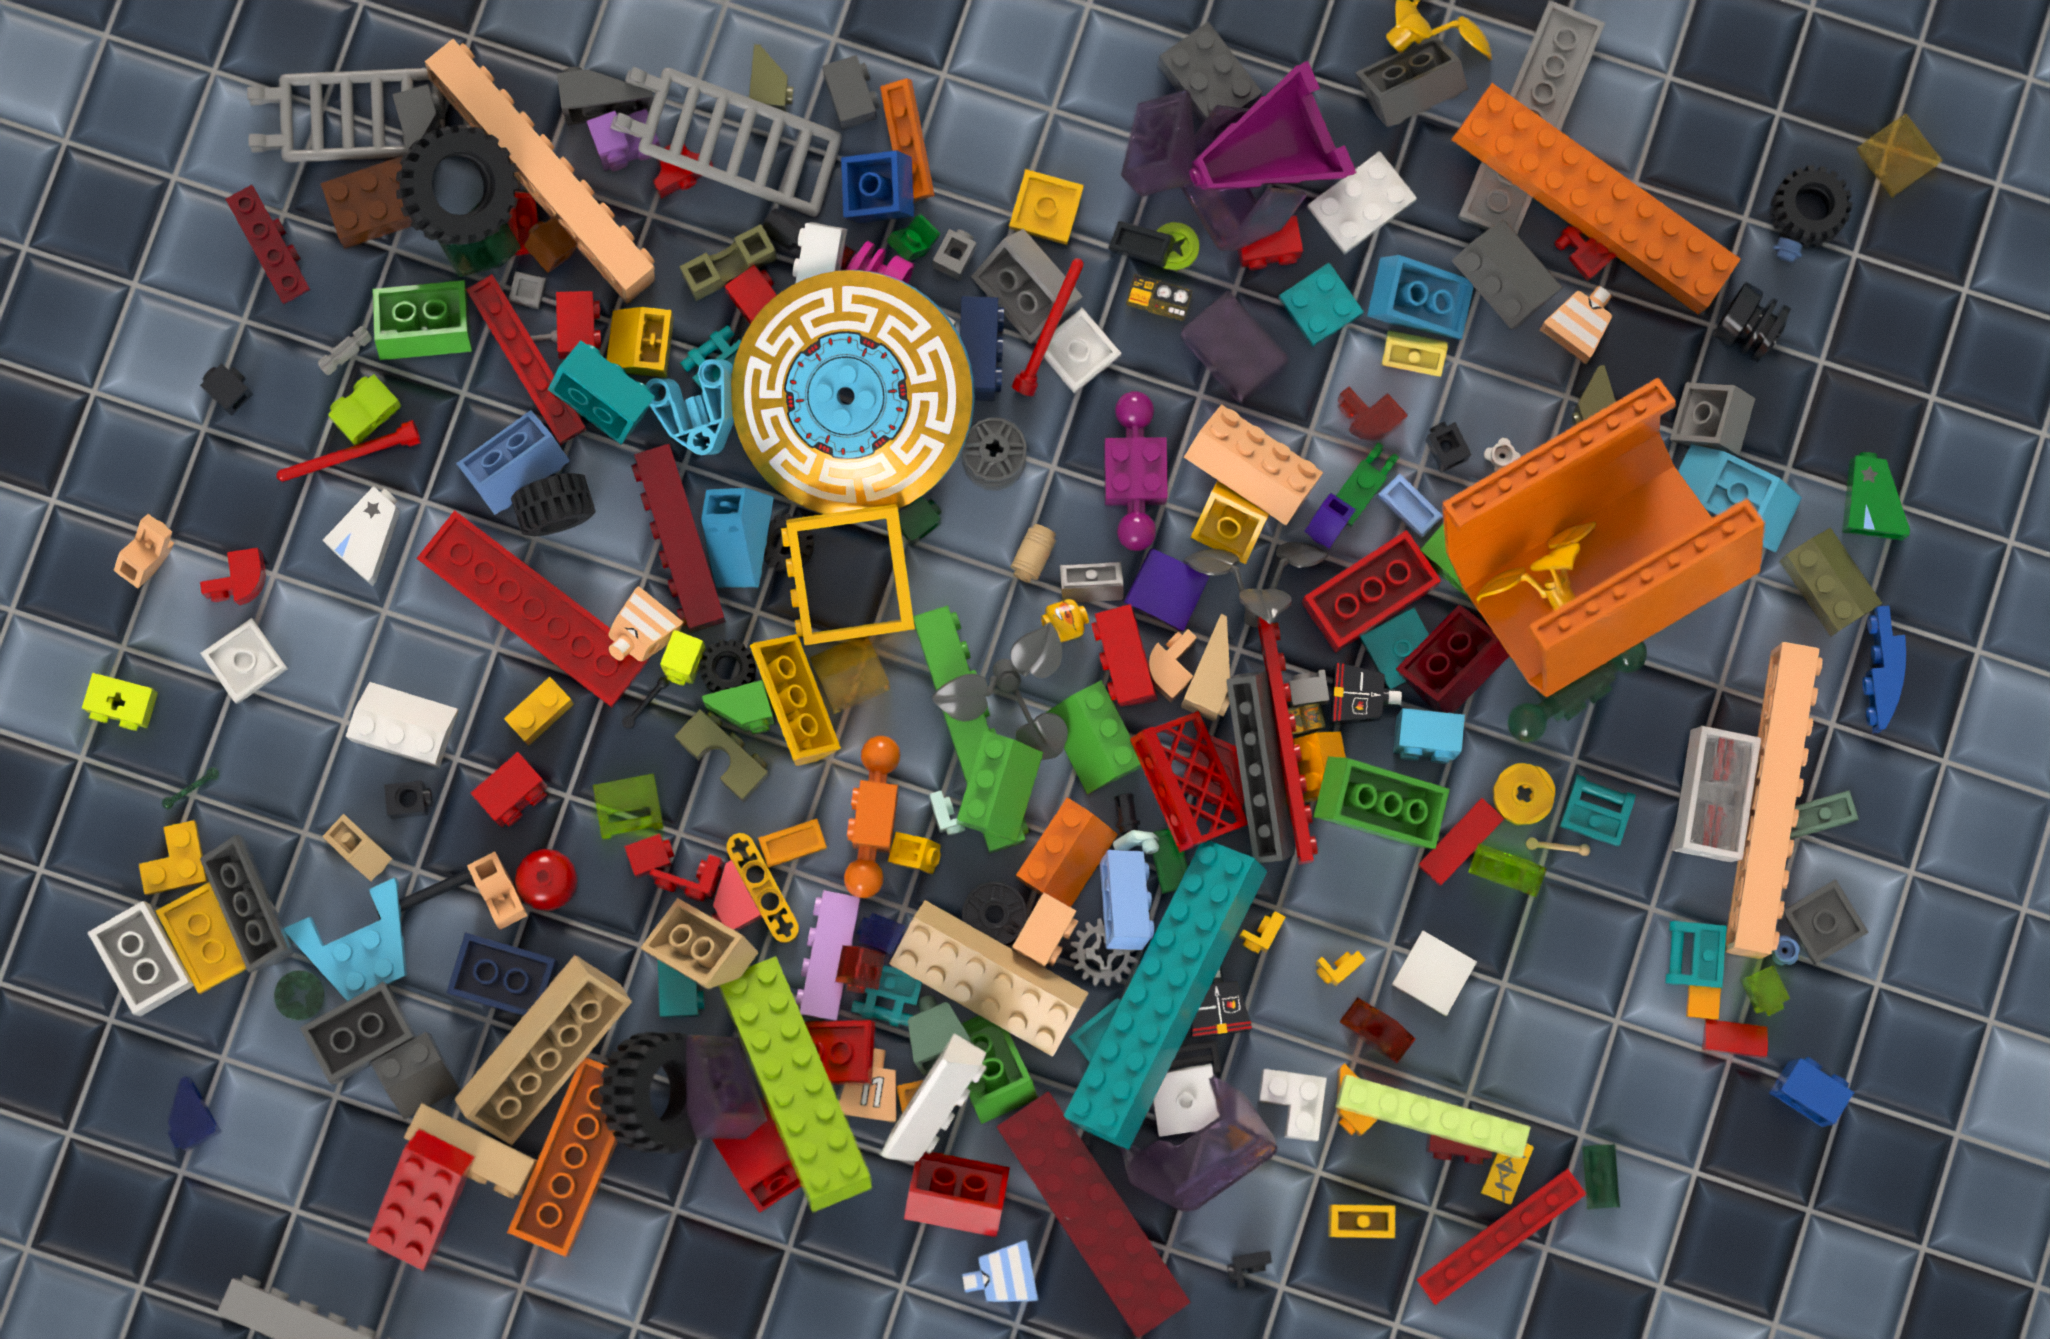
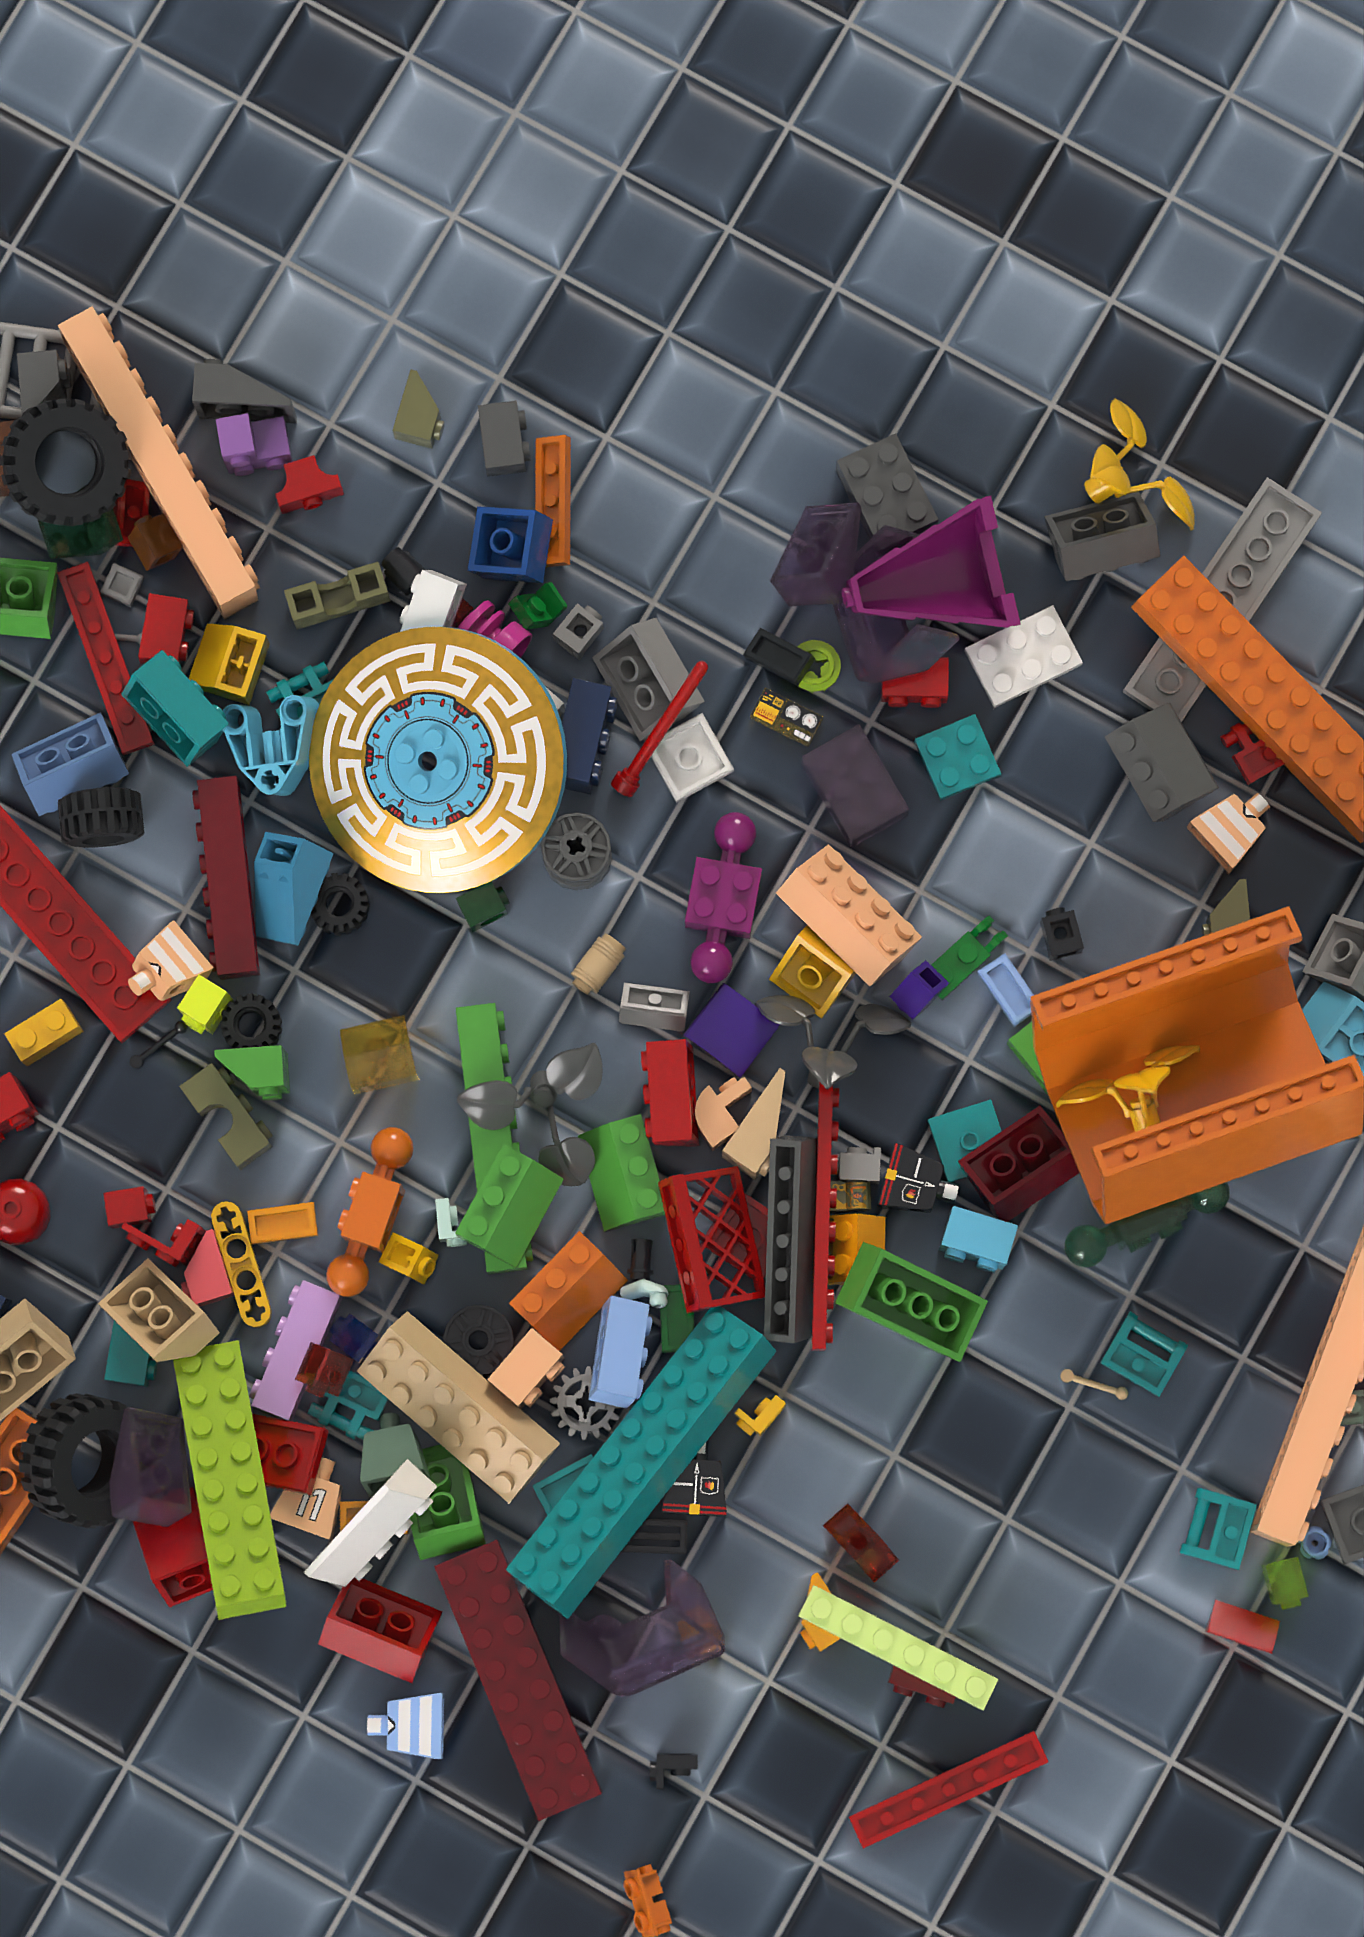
camera: 20 degrees right, 0 degrees up
(627, 796) = (117, 1139): clear neon green plate -> none
(647, 131) = (357, 506): light grey bar -> none
(751, 292) = (355, 630): red brick -> none
(795, 570) = (340, 934): yellow window -> none
(795, 699) = (313, 1071): yellow slope -> none
(1046, 206) = (686, 598): yellow plate -> none
(1066, 618) = (617, 1042): yellow head -> none
(1185, 1101) = (638, 1577): white plate -> none
(1303, 1097) = (767, 1598): white brick -> none
(1345, 966) = (841, 1467): yellow bracket -> none
(1361, 1221) = (801, 1743): yellow brick -> none
(1371, 422) = (988, 893): clear red brick -> none
(1371, 591) = (947, 1073): red brick -> none
(1414, 353) = (1047, 827): light yellow slope -> none
(1420, 297) = (1064, 769): dark azure slope -> none
(1434, 973) = (934, 1494): white tile -> none
(1461, 841) = (991, 1359): red tile -> none
(1503, 446) = (1121, 945): white plate -> none
(1505, 1176) = (967, 1725): yellow tile -> none
(1507, 870) = (1034, 1399): clear neon green slope -> none
(1530, 777) = (1076, 1303): yellow plate -> none
(1601, 1176) = (1068, 1746): clear green plate -> none
(1703, 1002) = (1216, 1581): light orange tile -> none
(1716, 794) = (1274, 1361): brick -> none
(1812, 1091) = (1312, 1700): blue brick -> none

